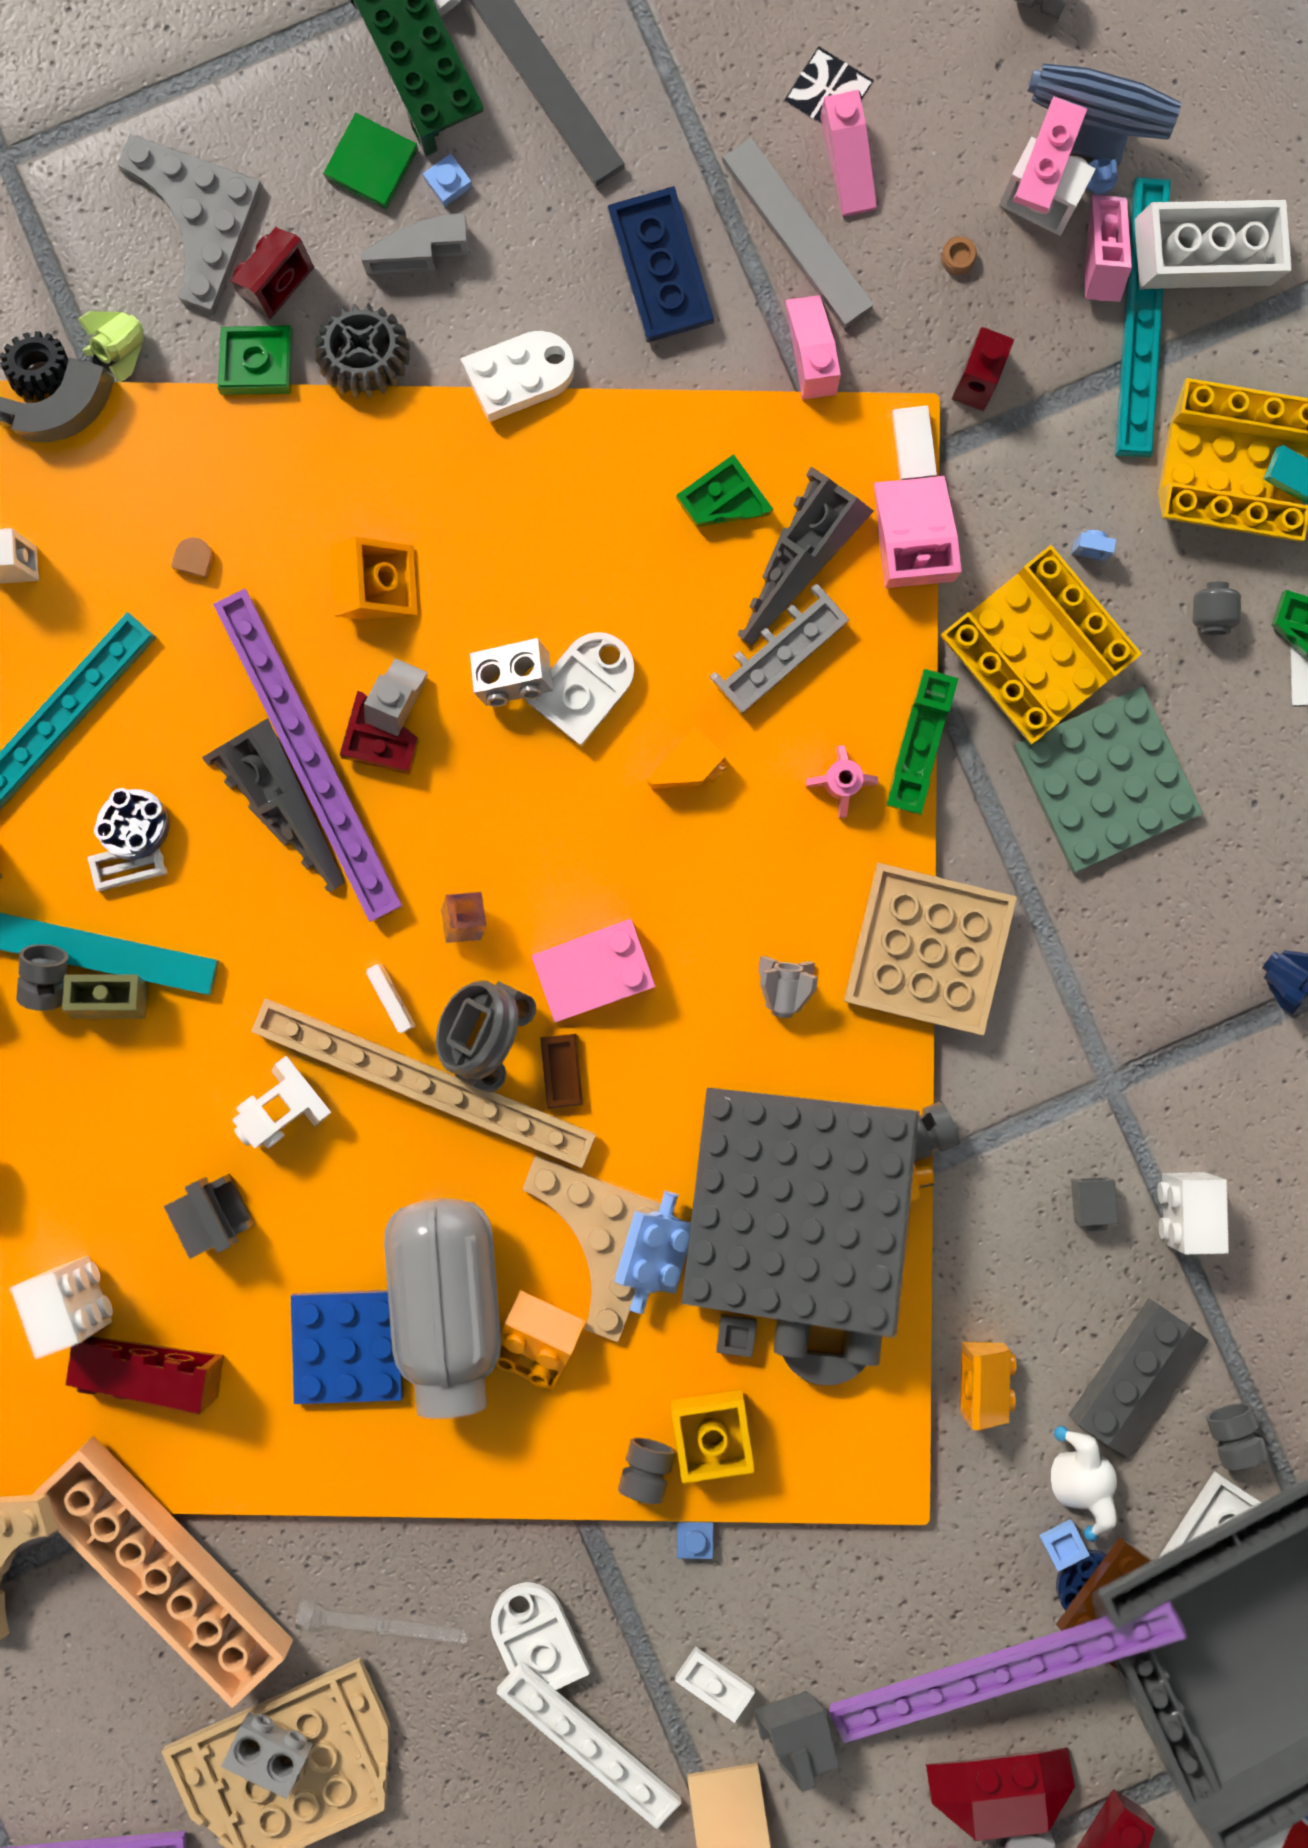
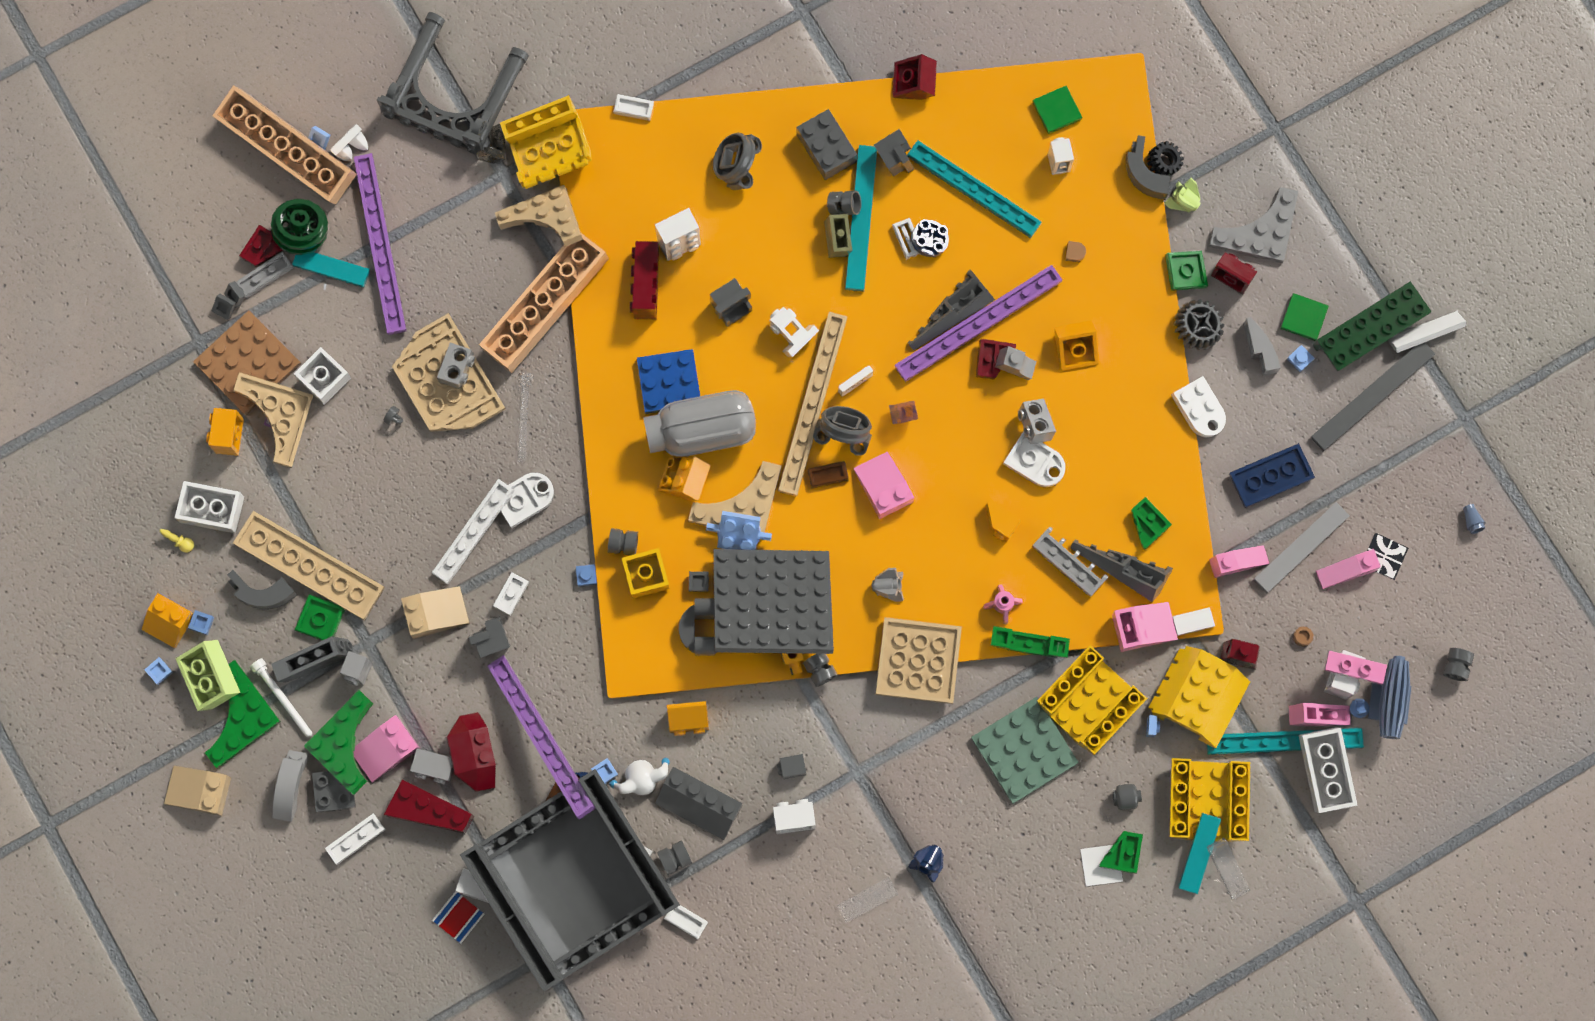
camera: 80 degrees right, 10 degrees down
(1047, 453) = (1200, 694): none -> yellow slope

